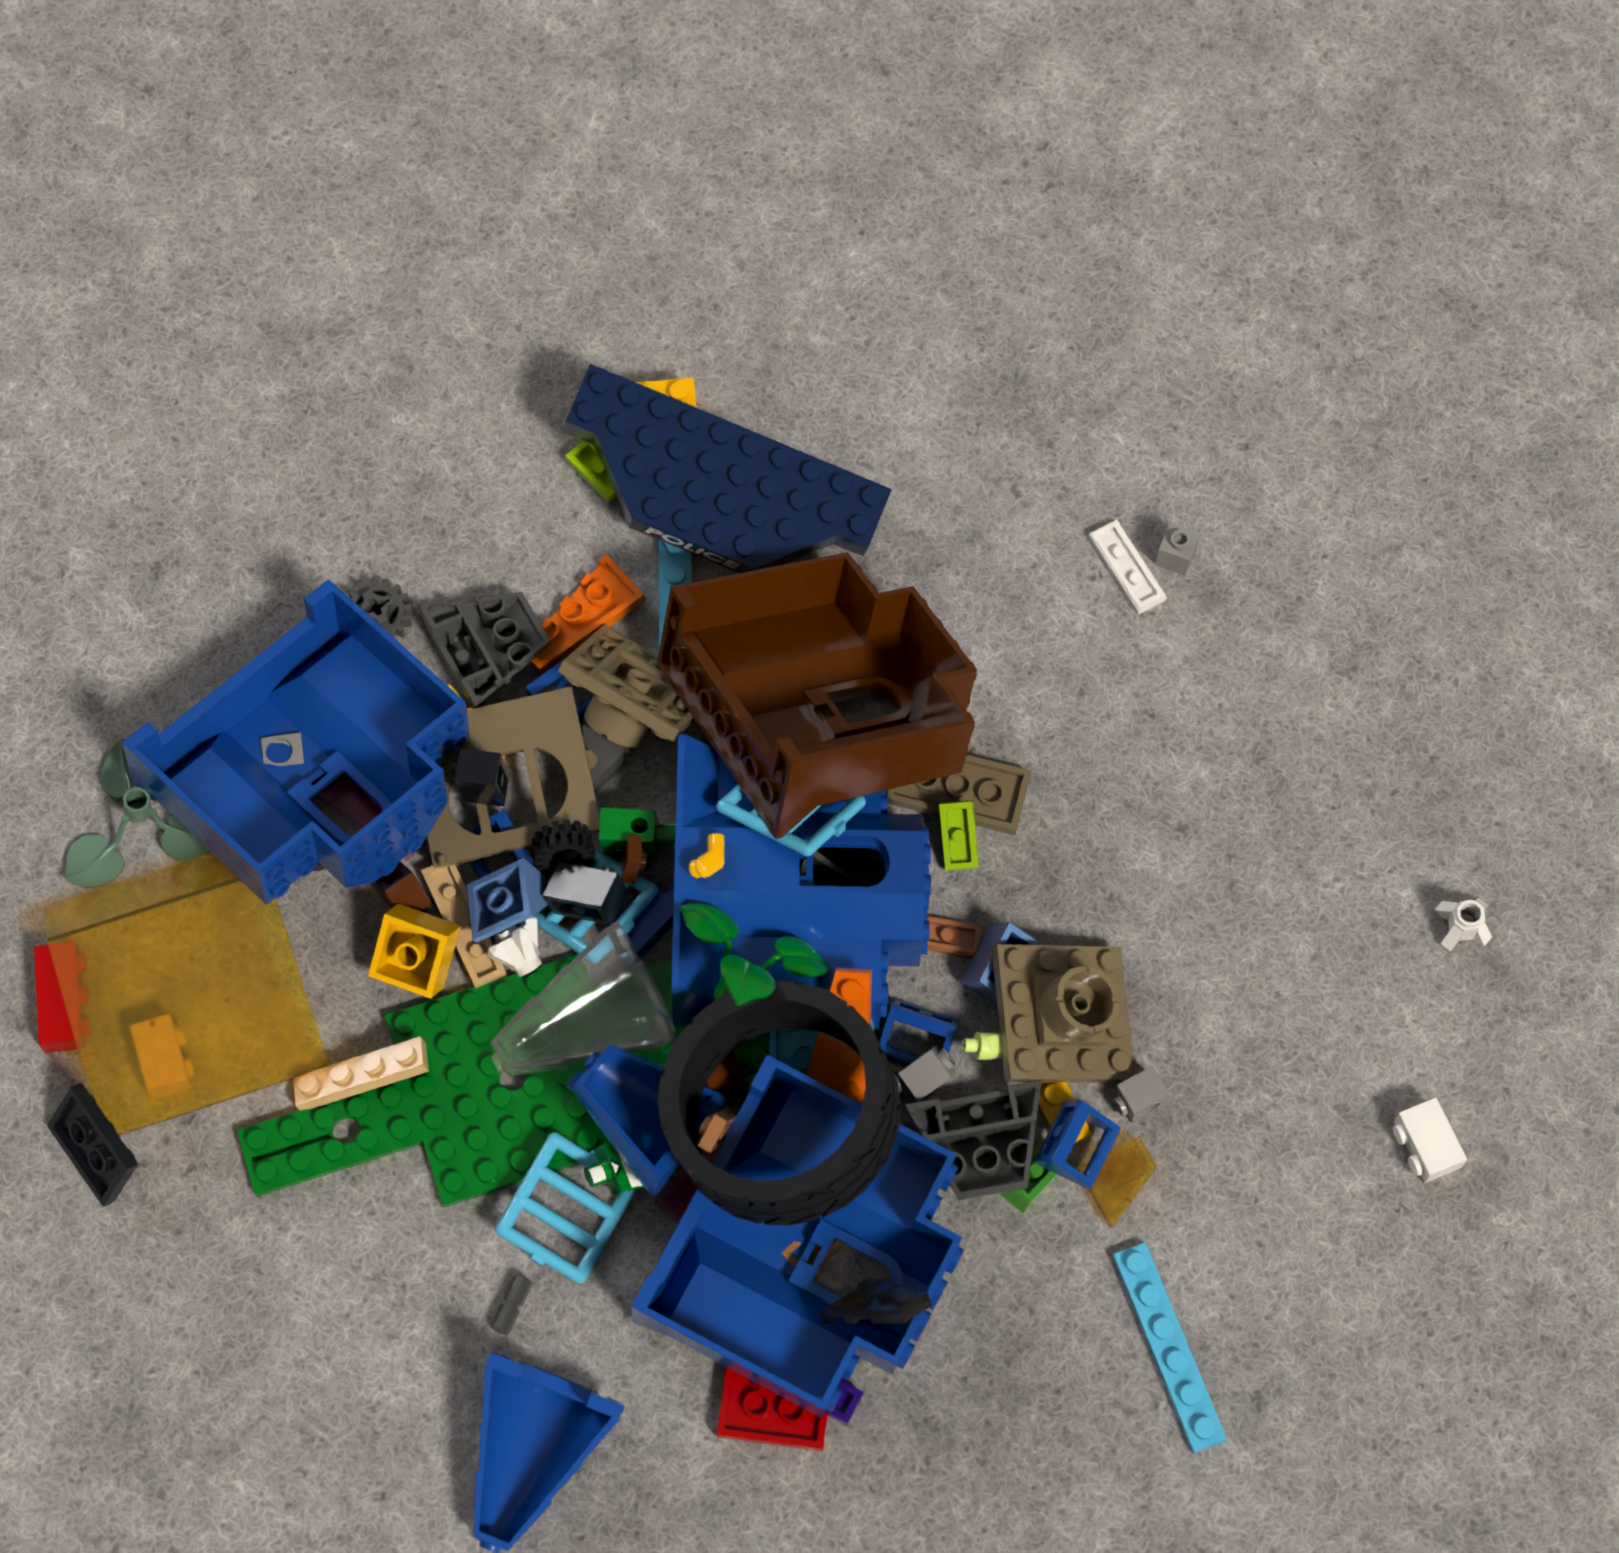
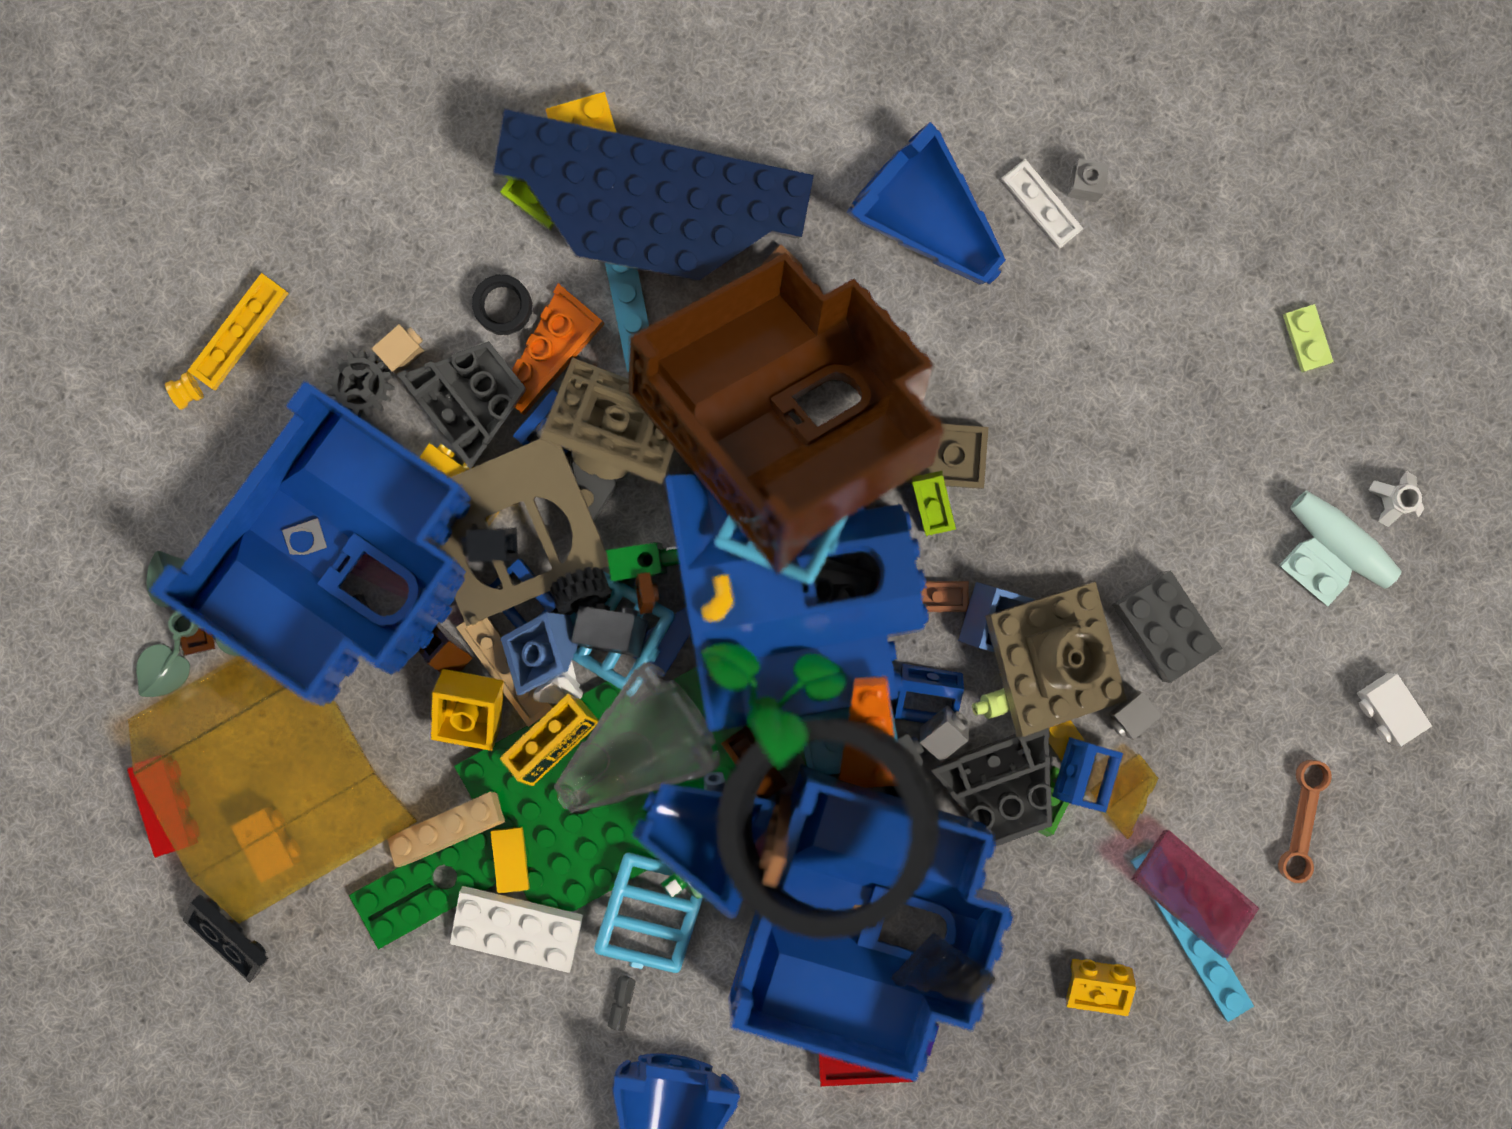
camera: 10 degrees left, 20 degrees up
(141, 836) = (197, 643): none -> reddish brown plate
(192, 587) = (184, 390): none -> yellow wheel
(262, 542) = (238, 331): none -> yellow plate
(412, 1198) = (516, 929): none -> white plate
(423, 1119) = (510, 859): none -> yellow tile
(426, 585) = (399, 348): none -> tan brick
(495, 994) = (549, 740): none -> yellow brick
(546, 586) = (485, 288): none -> black tyre
(1008, 546) = (930, 209): none -> blue cone
(1054, 1386) = (1101, 987): none -> yellow bracket
(1178, 1298) = (1195, 893): none -> clear pink tile
(1190, 1006) = (1167, 626): none -> dark grey brick
(1314, 1245) = (1304, 821): none -> nougat piece
(1387, 963) = (1334, 551): none -> light aqua plate
(1390, 746) = (1308, 338): none -> yellowish green plate

